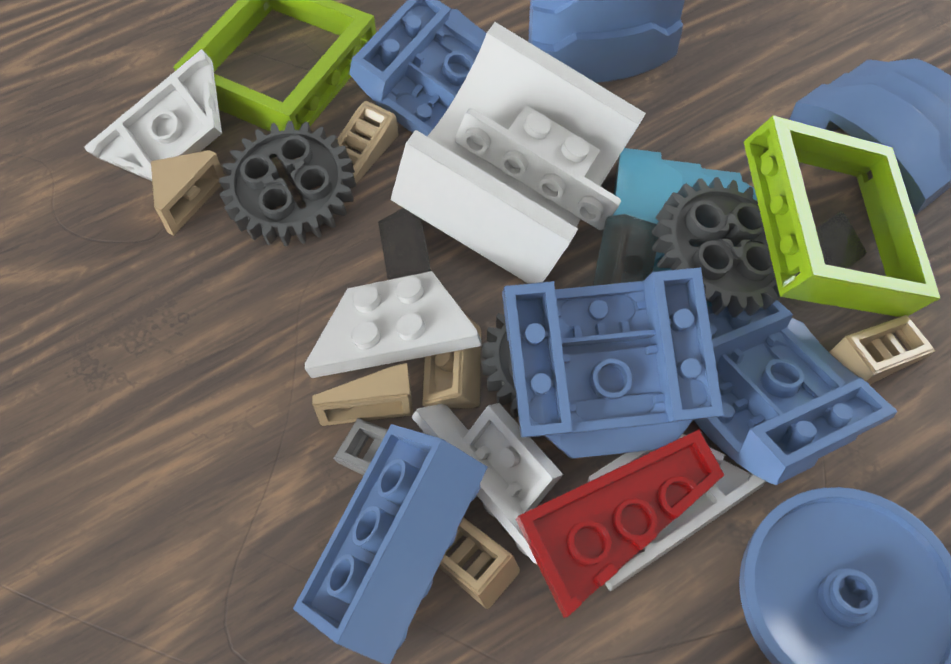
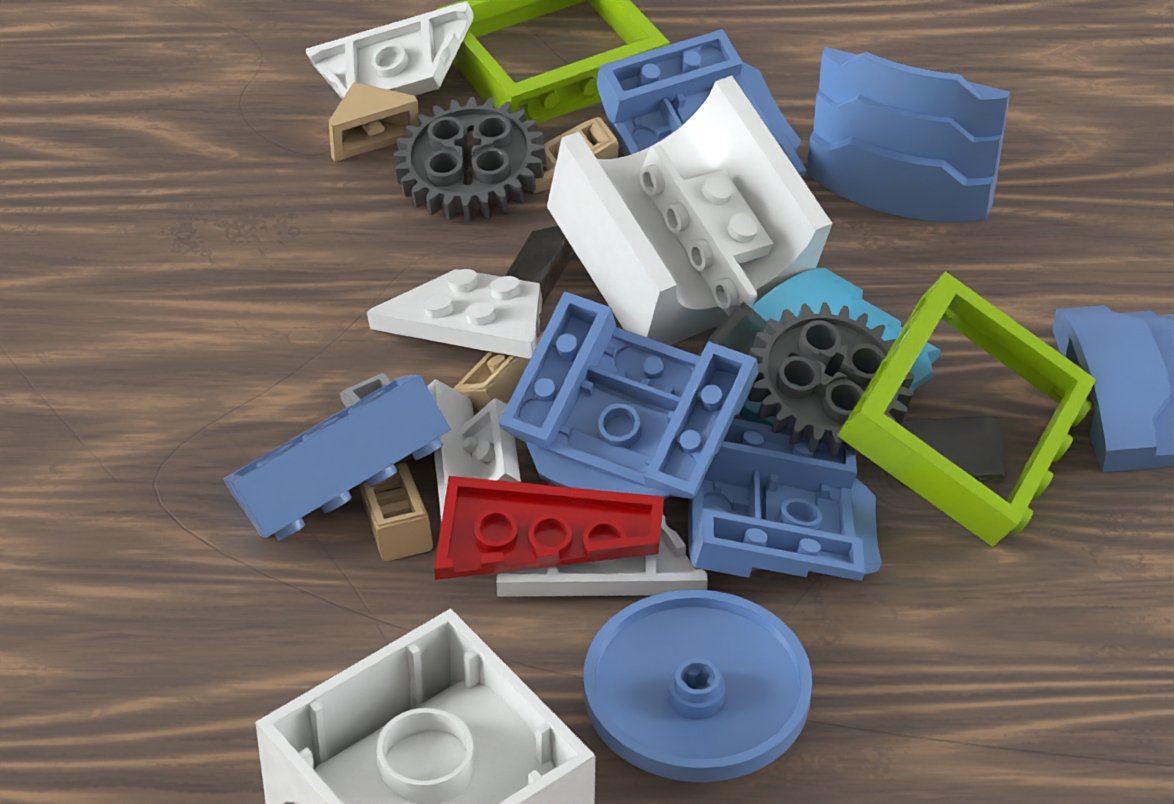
camera: 30 degrees right, 15 degrees down
(367, 398) = (412, 351): tan slope -> none
(877, 352) = (903, 535): tan slope -> none

